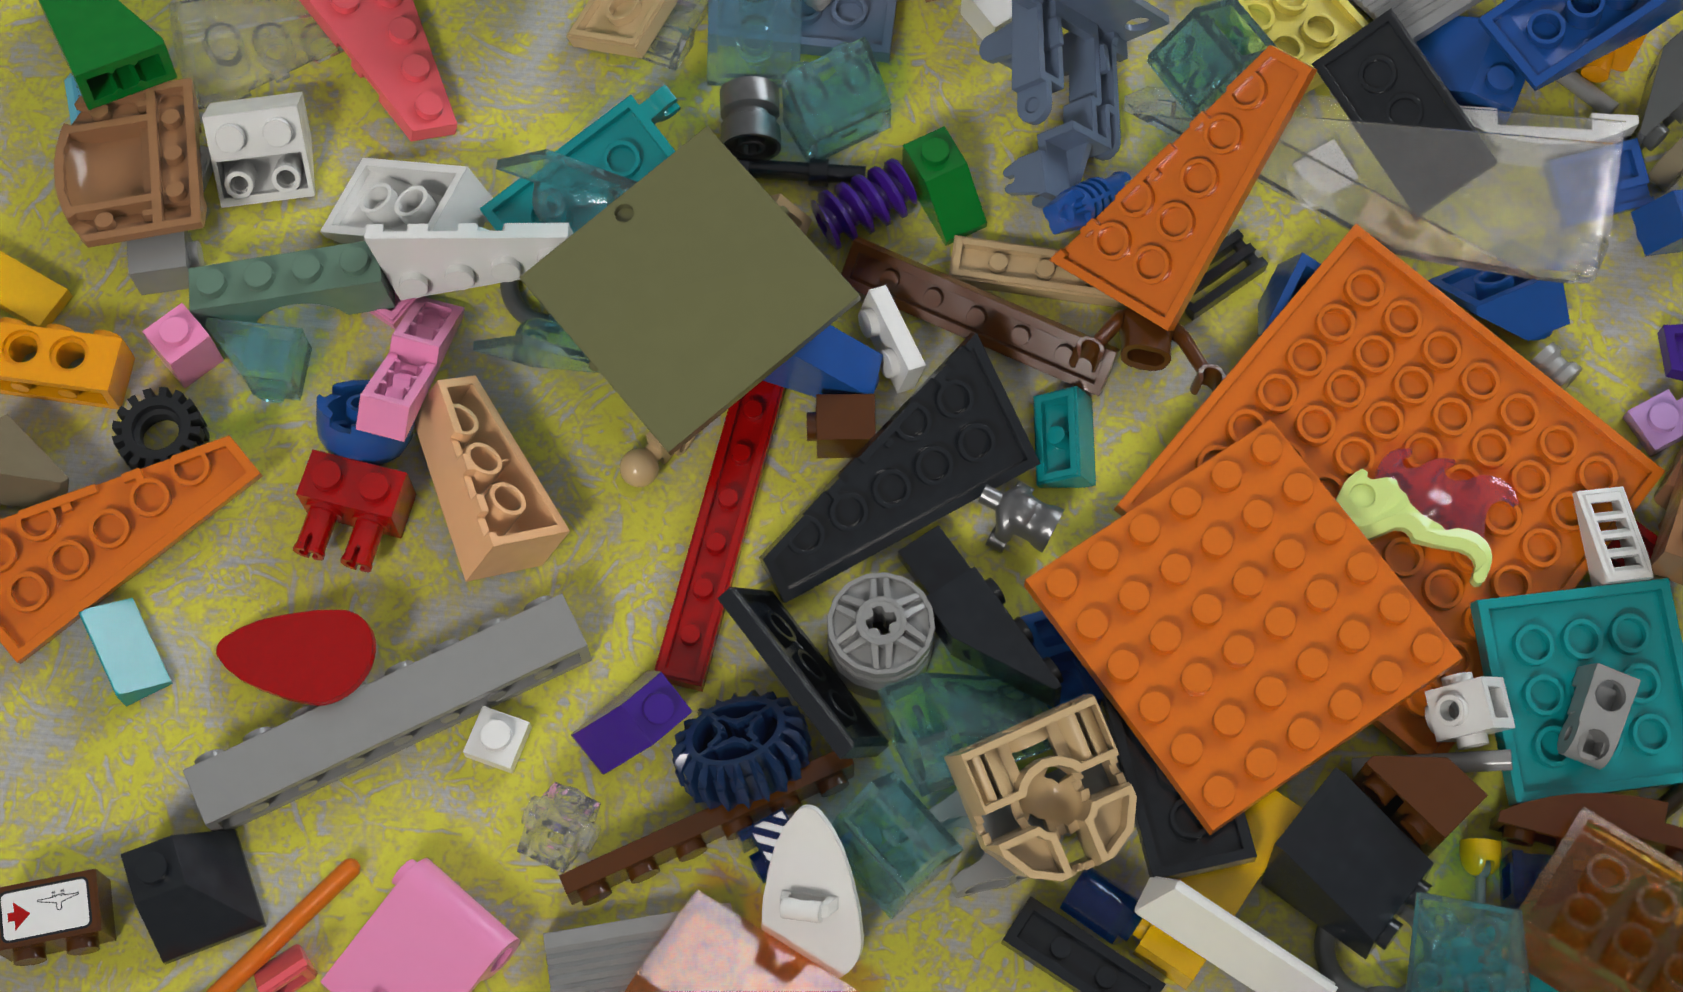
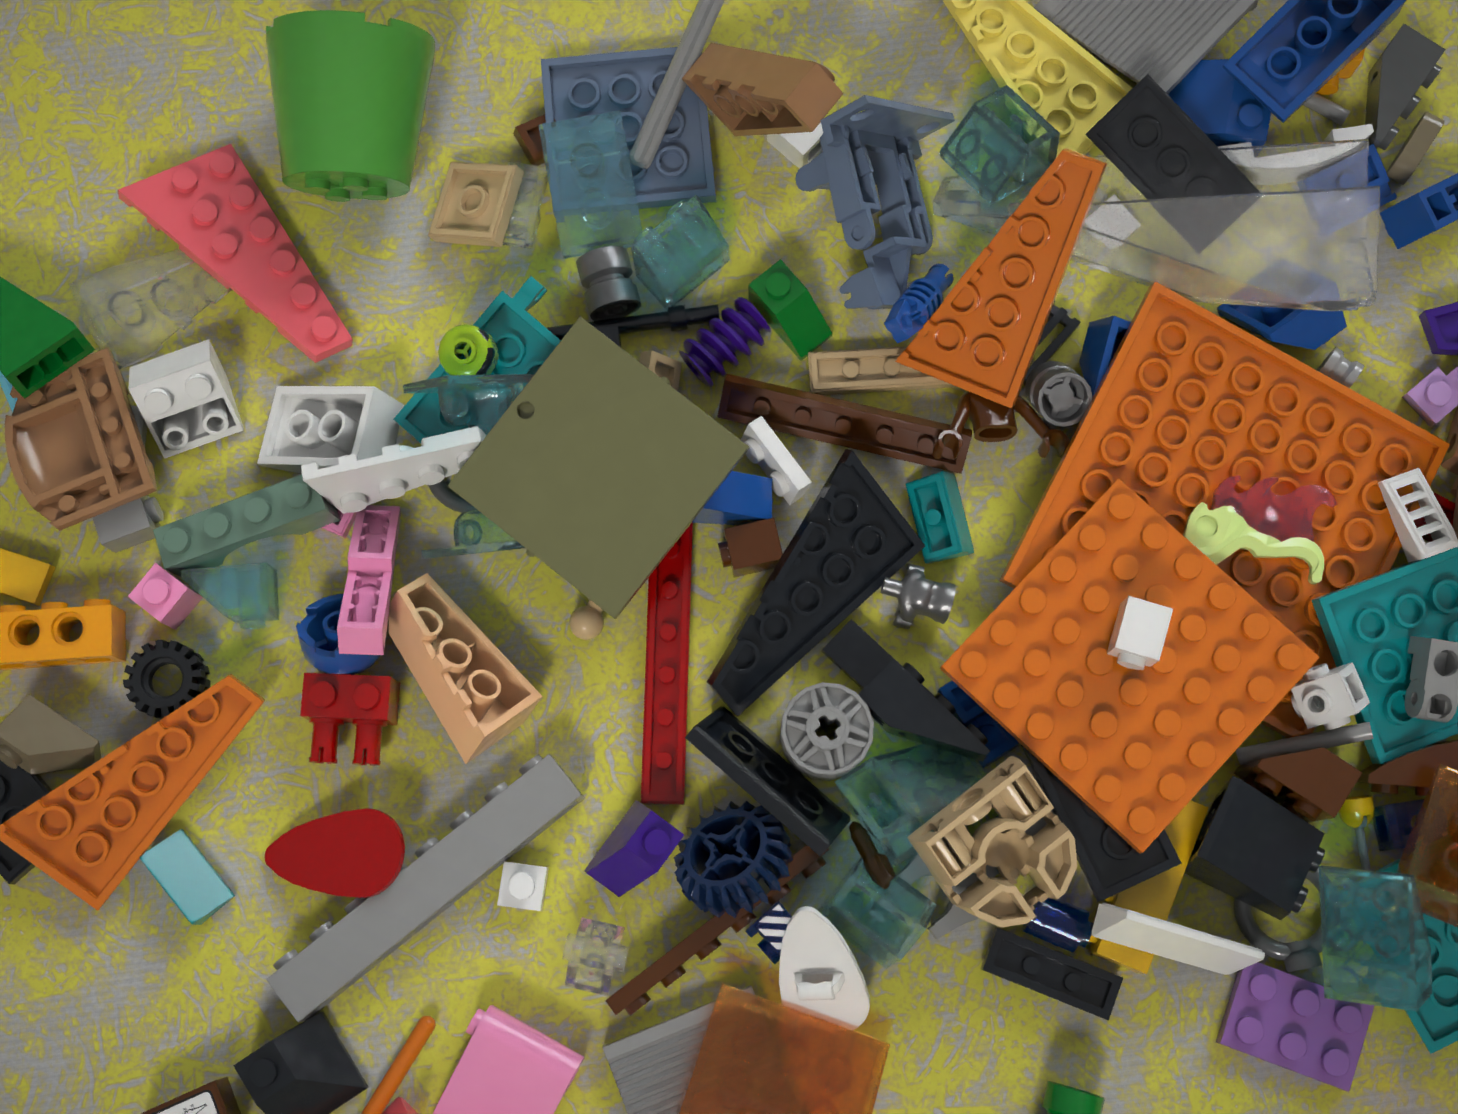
camera: 10 degrees left, 10 degrees up
(579, 139) = (460, 341): none -> lime head
(901, 779) = (876, 864): none -> dark brown piece
(1225, 327) = (1058, 393): none -> flat silver wheel
(1256, 580) = (1139, 633): none -> white brick

